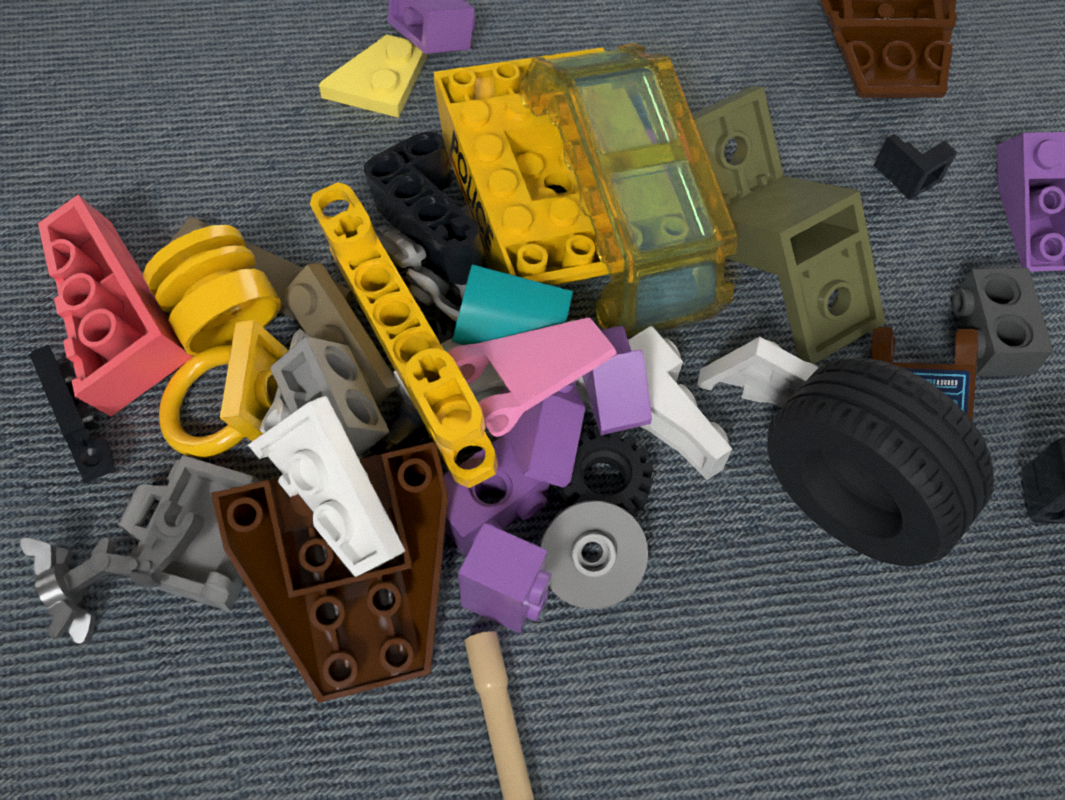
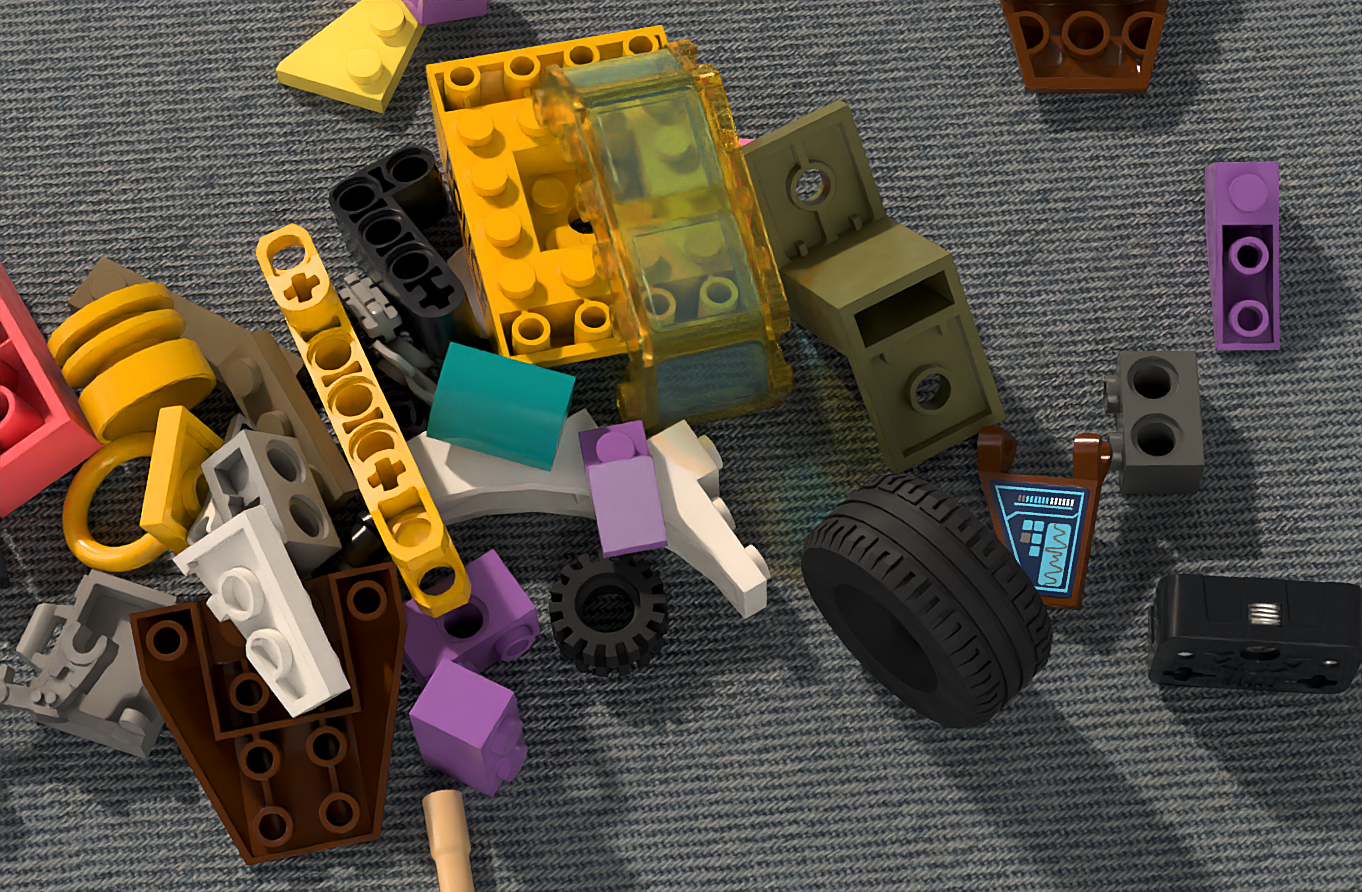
camera: 10 degrees right, 0 degrees up
(532, 366) = (514, 472): bright pink flag -> none
(548, 436) = (530, 538): medium lavender slope -> none
(609, 575) = (575, 736): light grey dish -> none
(761, 369) = (813, 474): white wing -> none
(911, 170) = (1083, 198): black panel -> none

